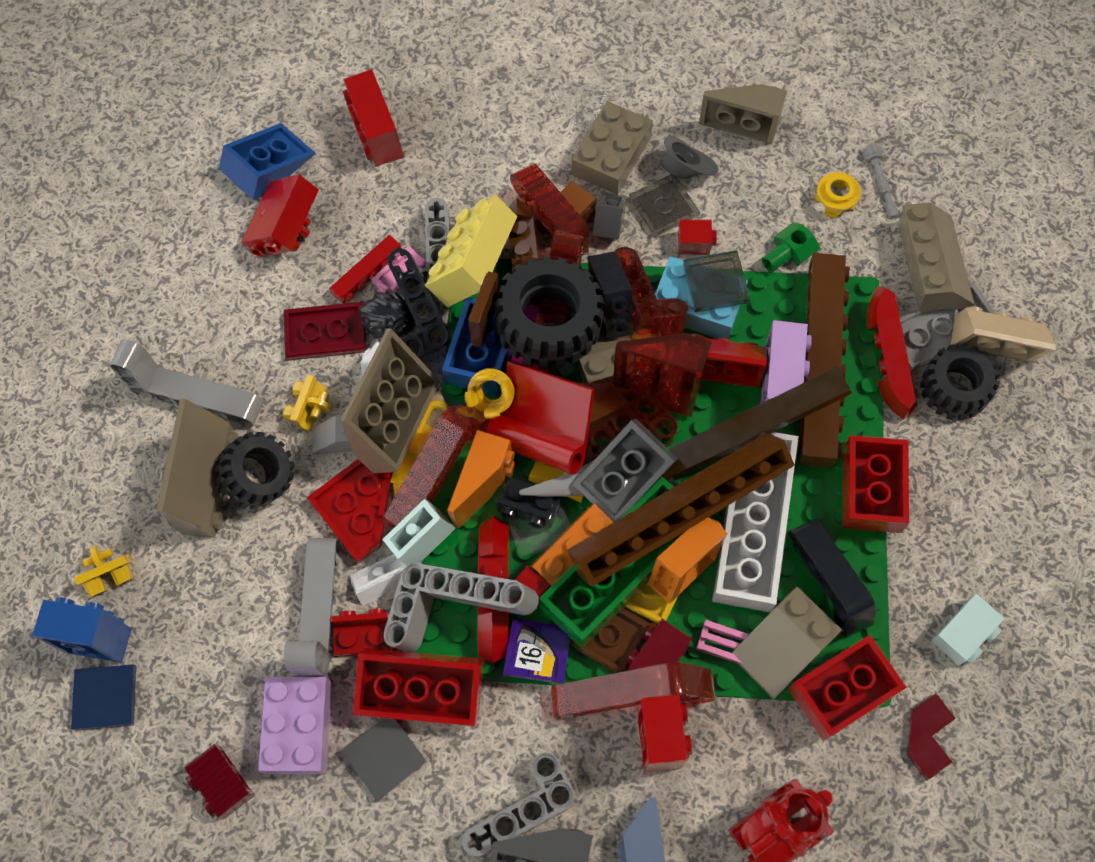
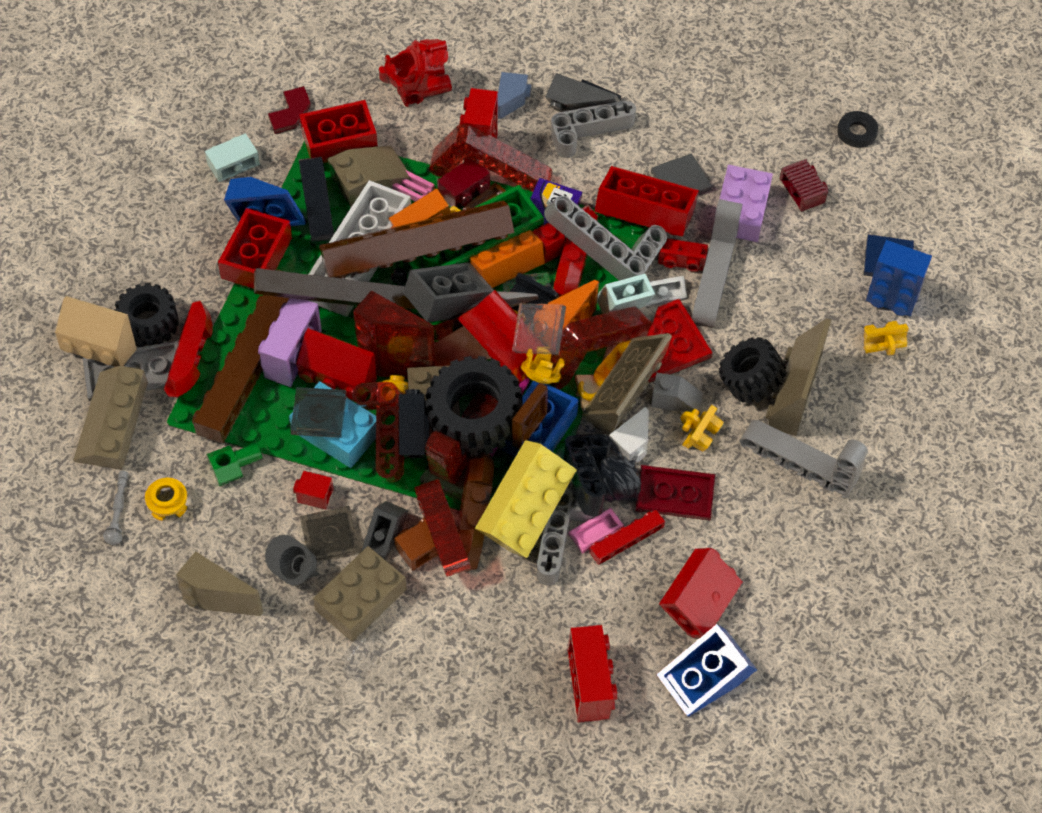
camera: 170 degrees left, 10 degrees down
(502, 425) = (539, 328): none -> clear tile
(896, 546) = (262, 197): none -> blue slope

